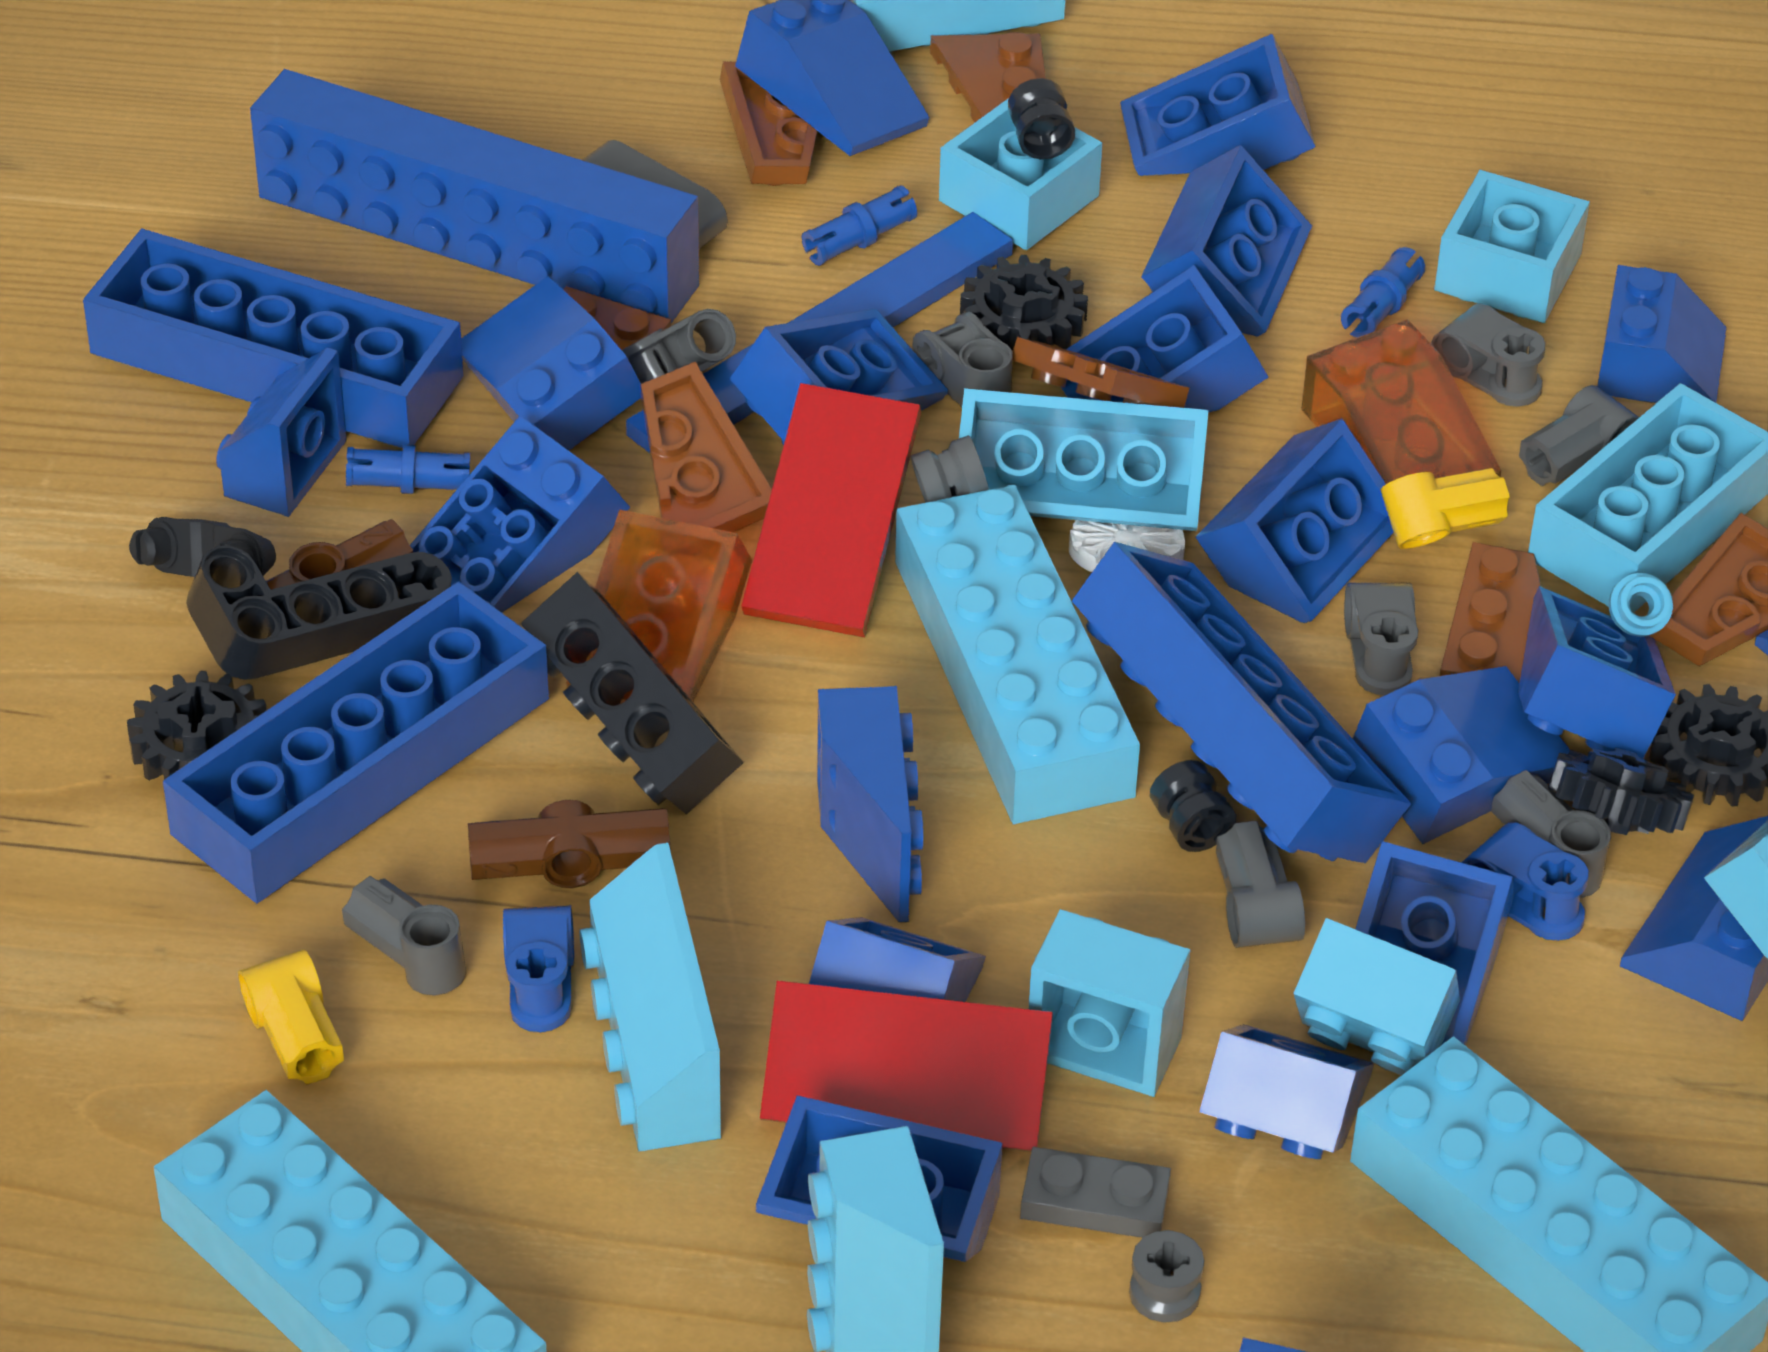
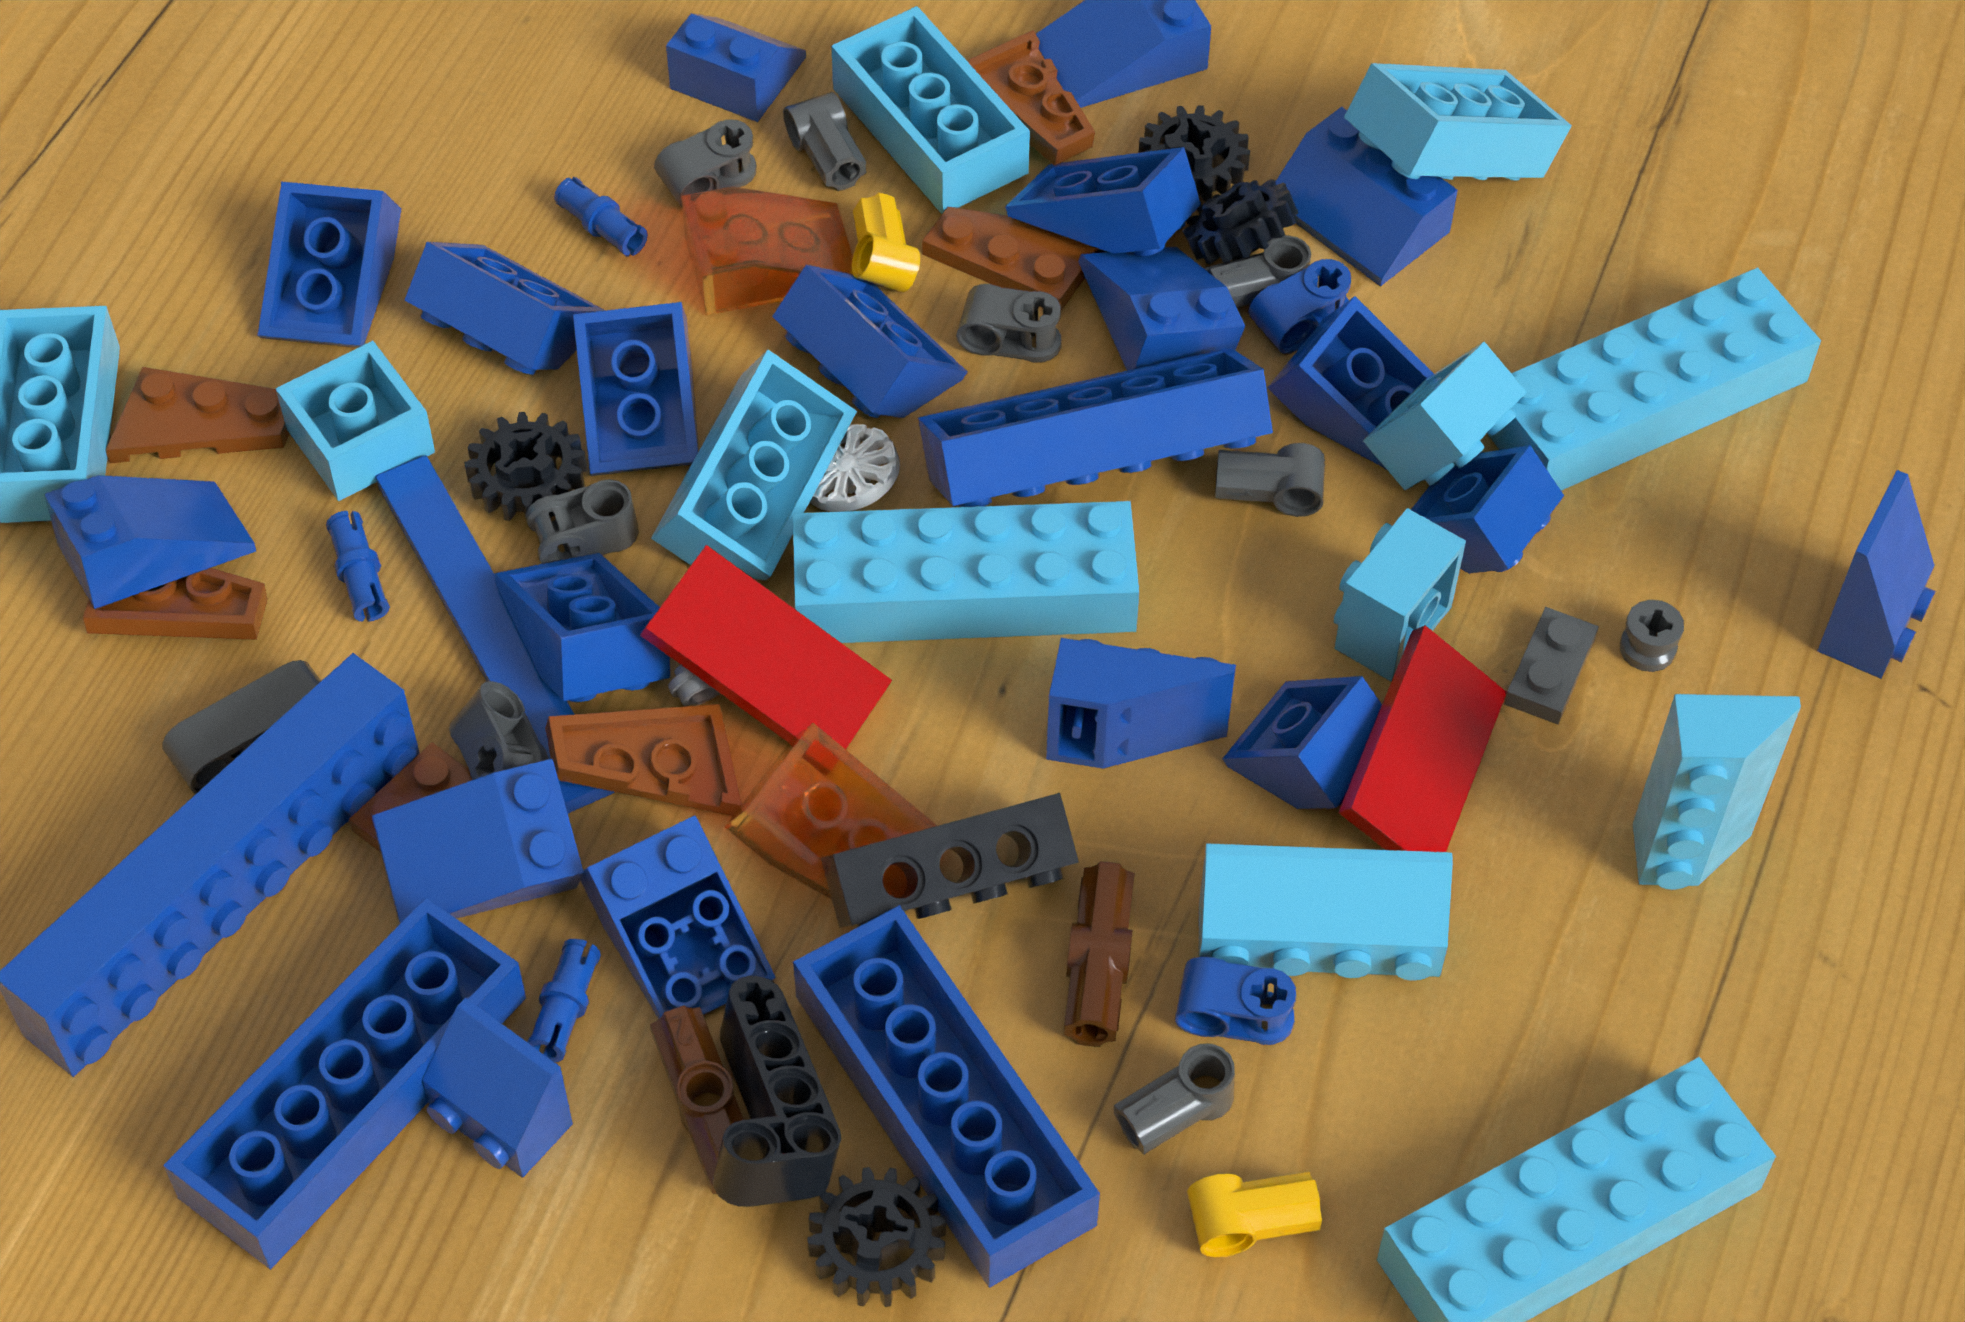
camera: 75 degrees left, 10 degrees up
(180, 544) = (629, 1196): black piece -> none
(951, 472) = (765, 553): dark grey wheel -> none
(957, 1170) = (1562, 794): blue slope -> none
(1041, 119) = (347, 367): black wheel -> none
(1096, 377) = (672, 422): dark orange wing -> none
(1191, 803) = (1172, 496): black wheel -> none
(1511, 246) = (596, 110): medium azure brick -> none
(1658, 600) = (1054, 147): medium azure plate -> none

